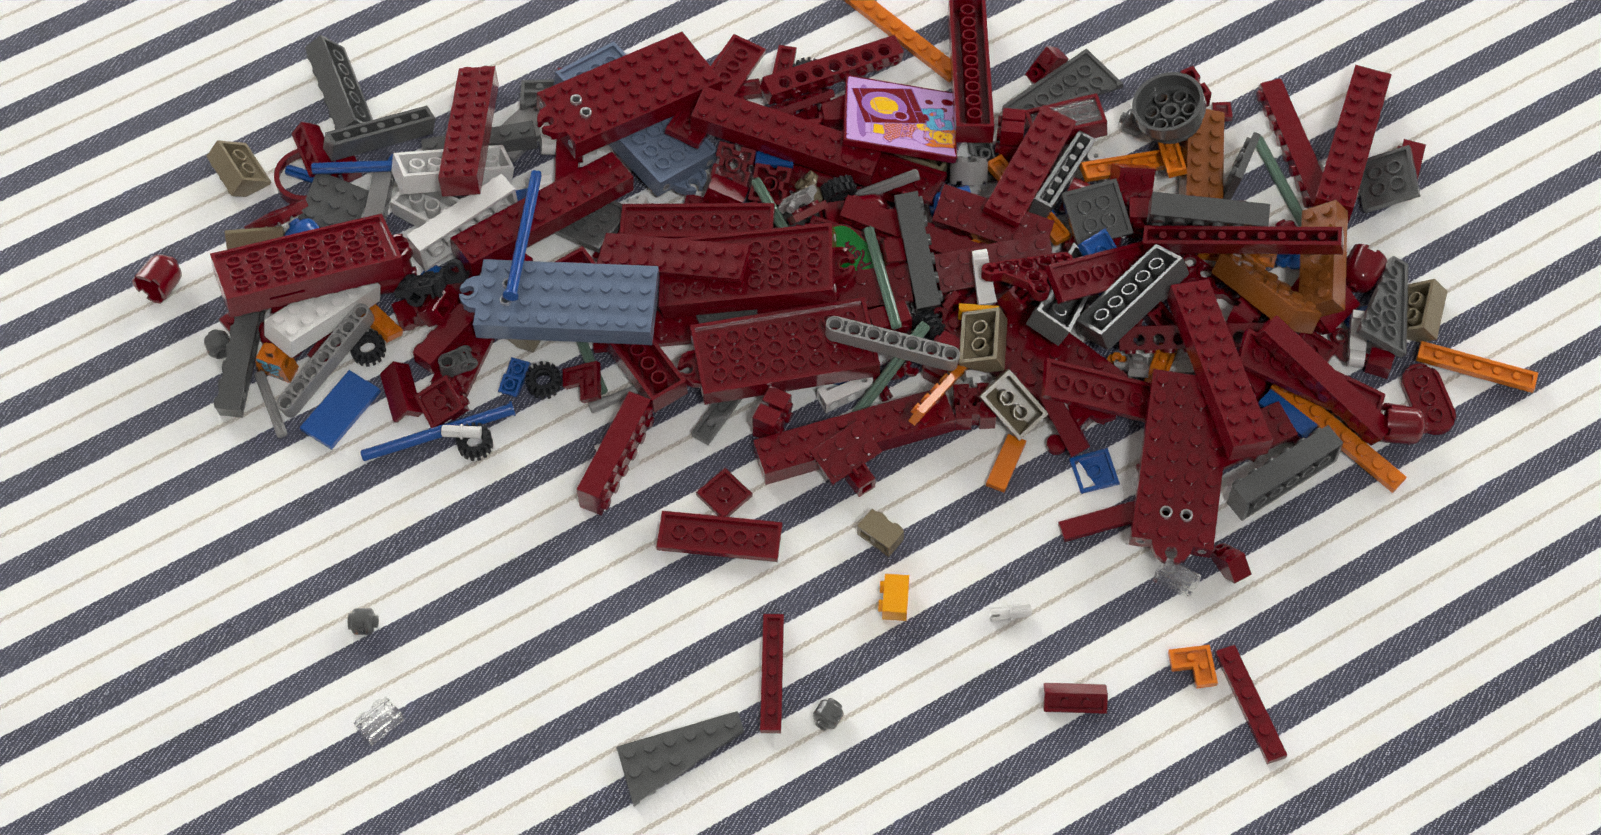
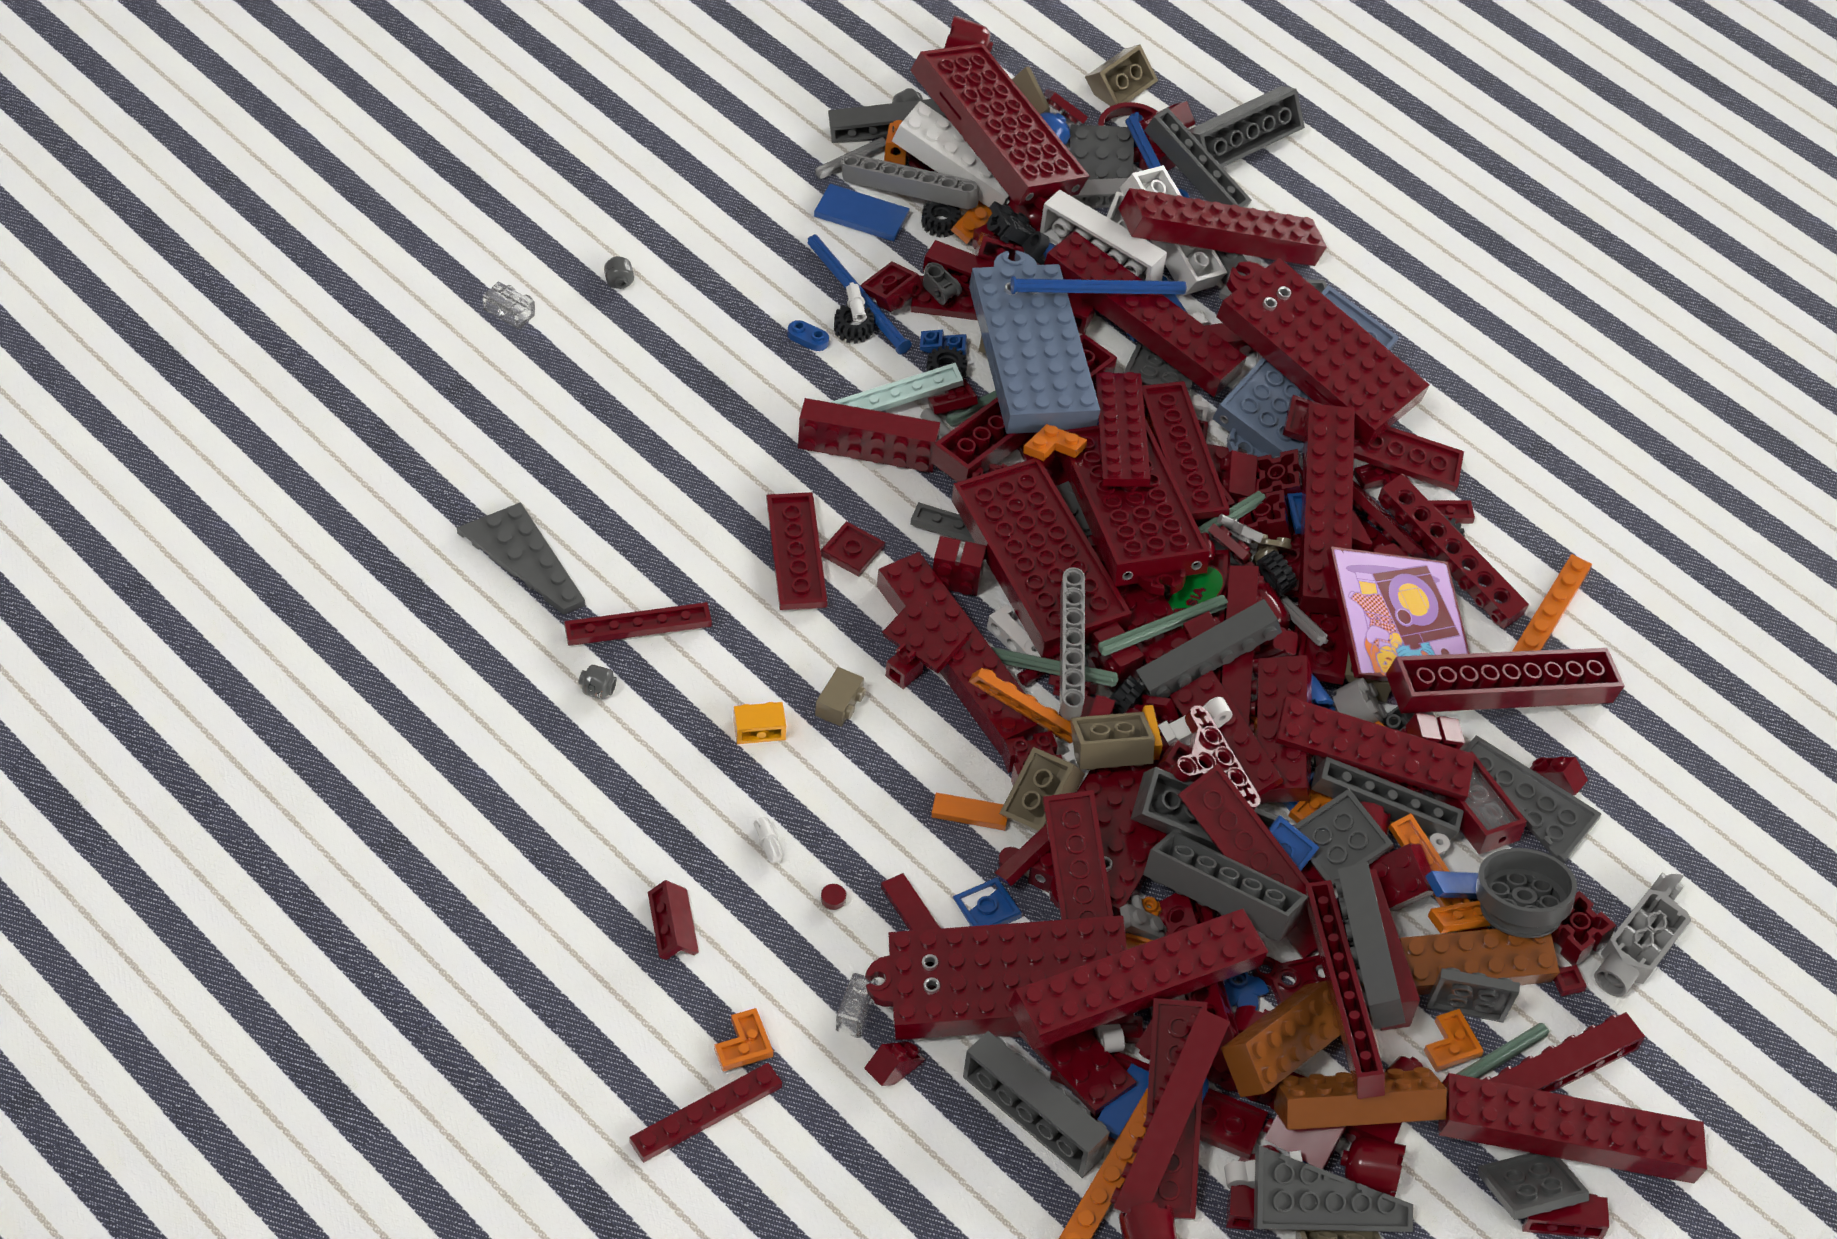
camera: 70 degrees right, 10 degrees down
(400, 391) = (902, 253): dark red panel -> none
(478, 481) = (808, 335): none -> blue plate
(570, 424) = (906, 390): none -> light aqua plate
(674, 308) = (1051, 439): none -> orange plate
(1070, 576) = (833, 896): none -> dark red piece
(1144, 150) = (1453, 884): none -> blue tile
(1194, 46) = (1643, 937): none -> light grey brick
(1262, 192) = (1458, 1042): none -> orange plate

